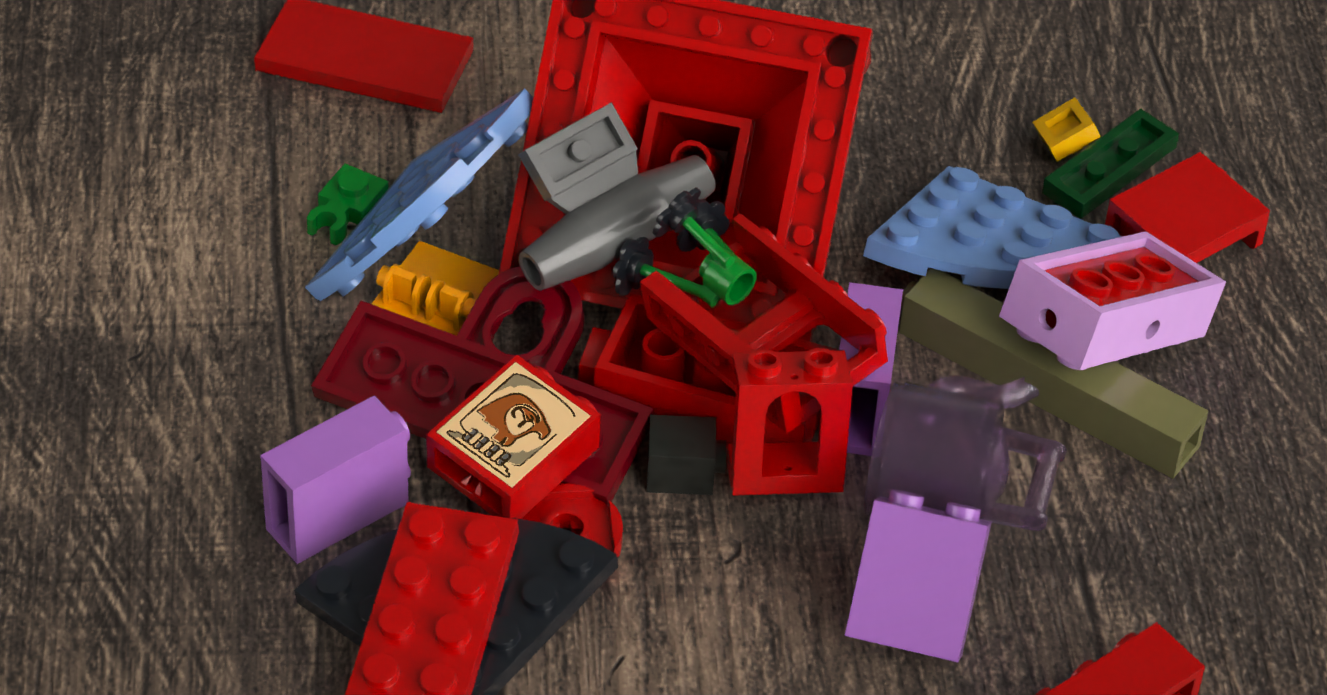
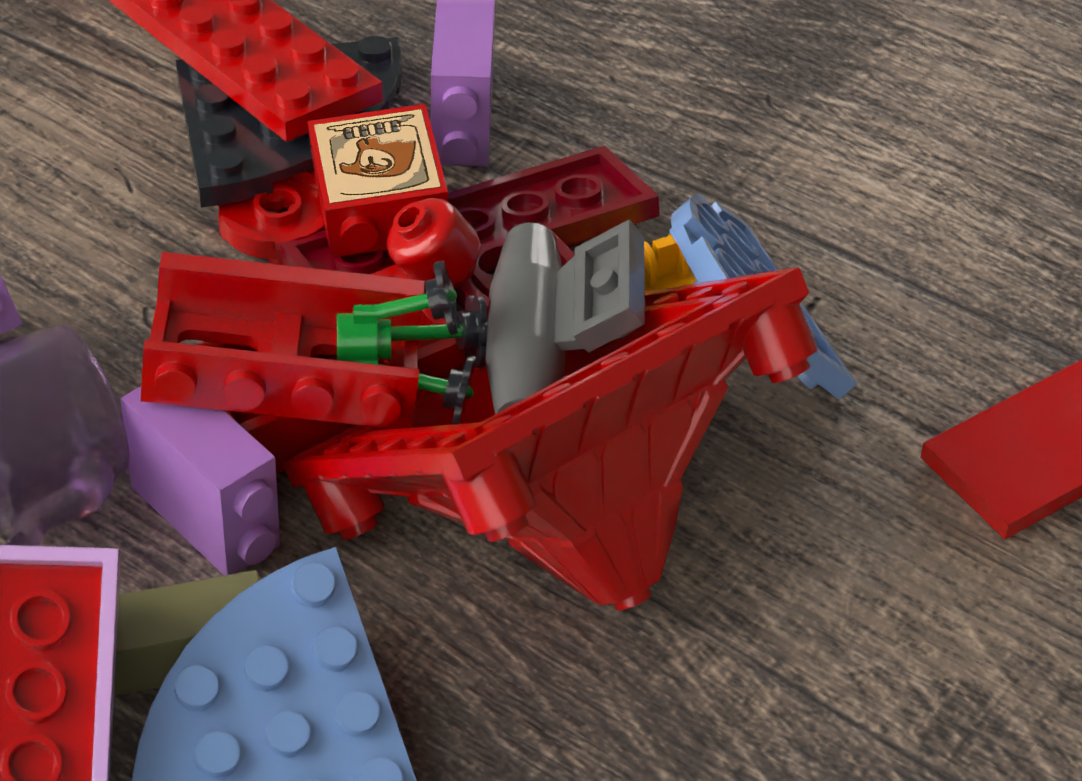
camera: 130 degrees right, 0 degrees up
(345, 200) = (843, 313): green plate -> none
(571, 339) = (433, 233): none -> red head
(789, 466) = (154, 289): red panel -> none

